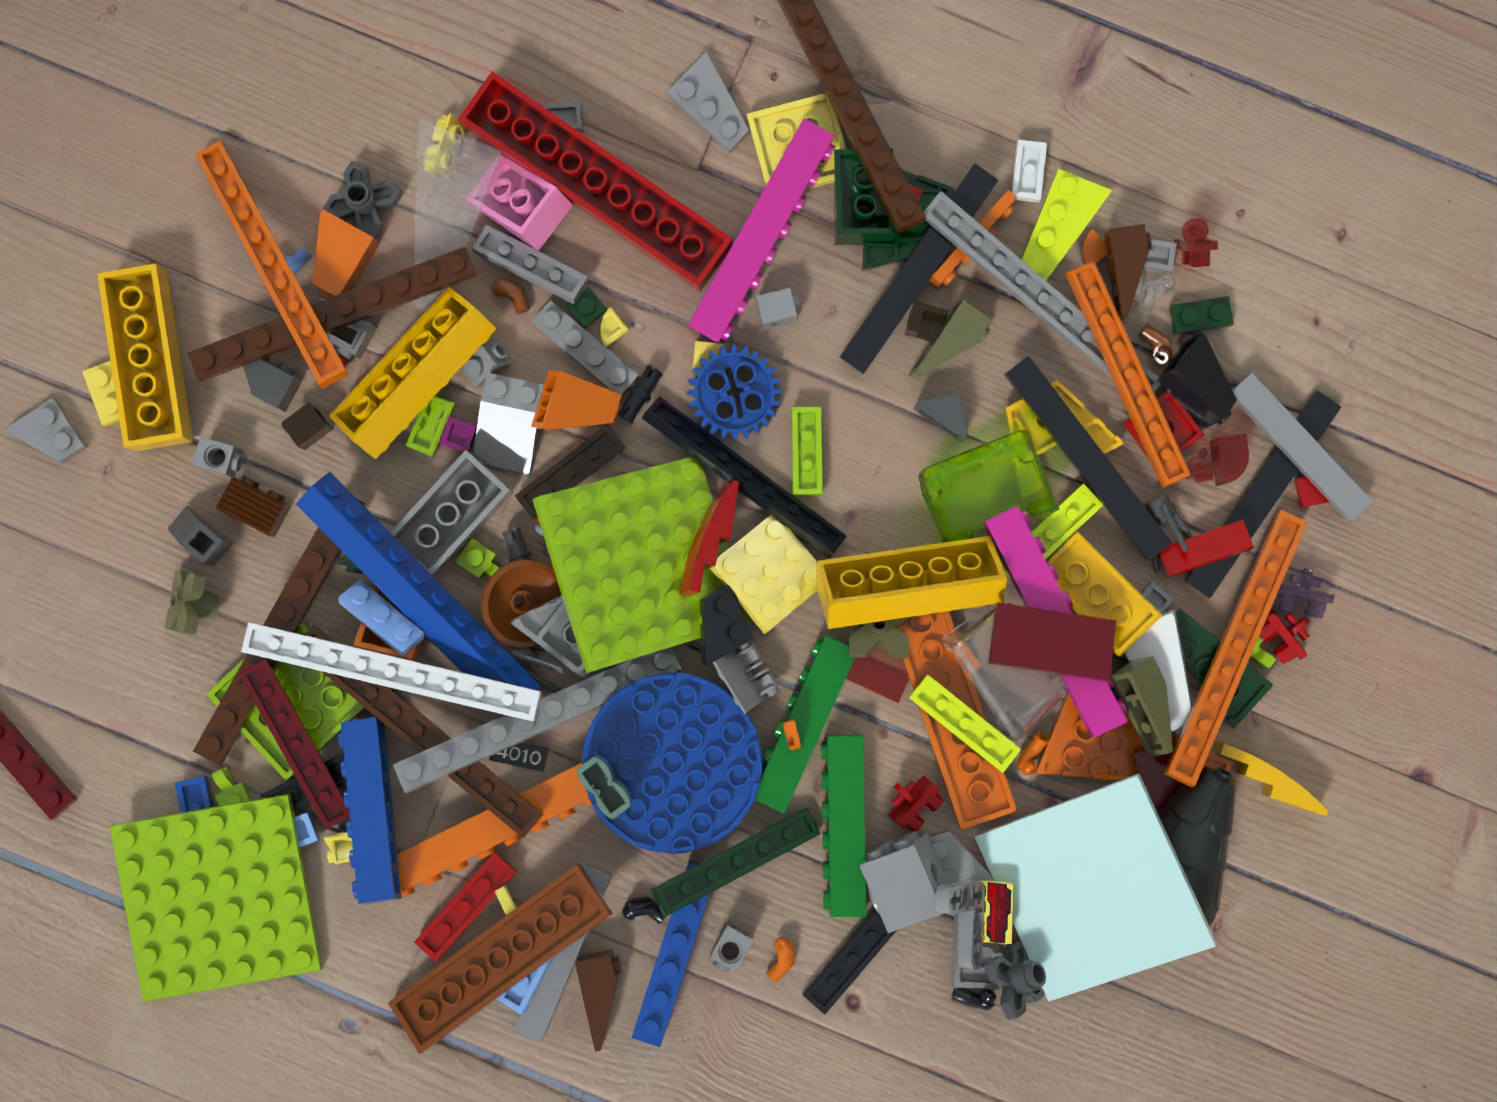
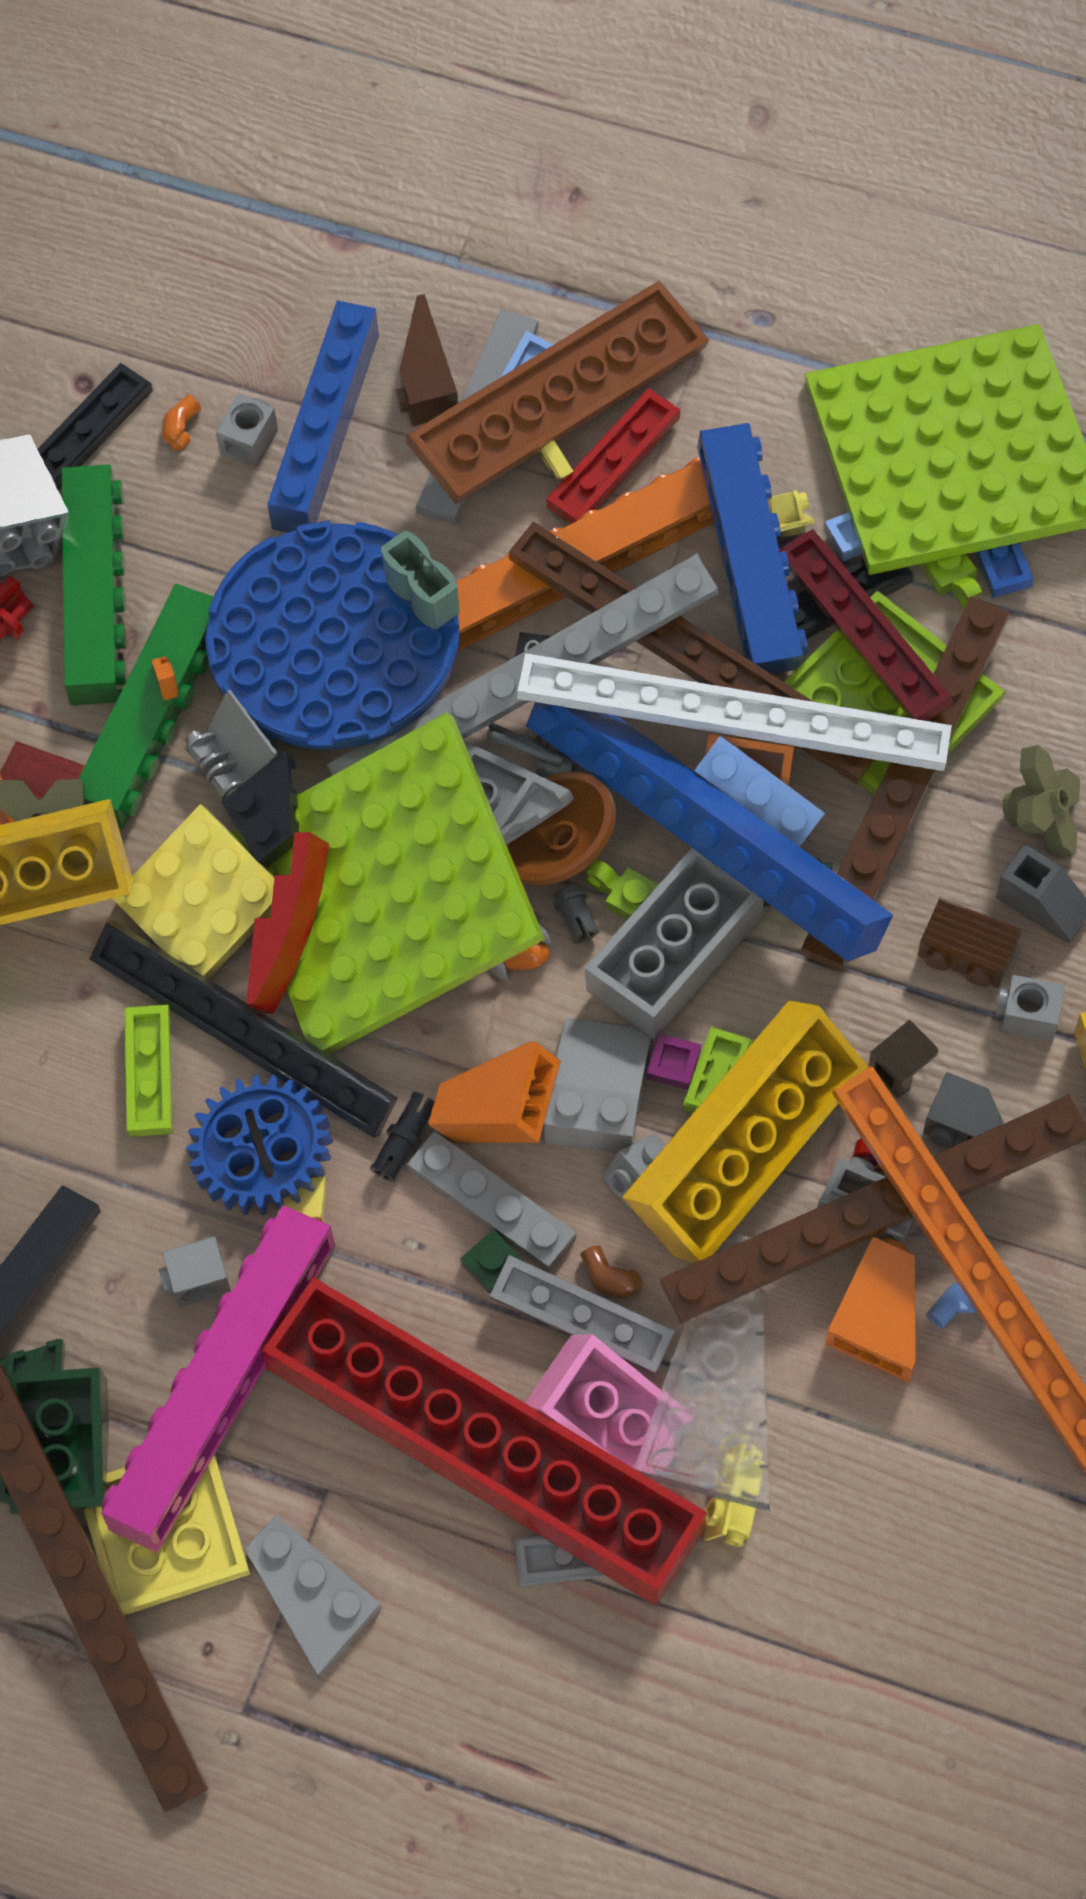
camera: 175 degrees left, 20 degrees down
(363, 199) = (847, 1379): dark grey plant -> none
(573, 468) = (504, 1018): dark brown plate -> none
(611, 328) = (451, 1235): light yellow tile -> none
(642, 906) = (369, 473): black arm -> none
(735, 862) = (240, 519): dark green tile -> none

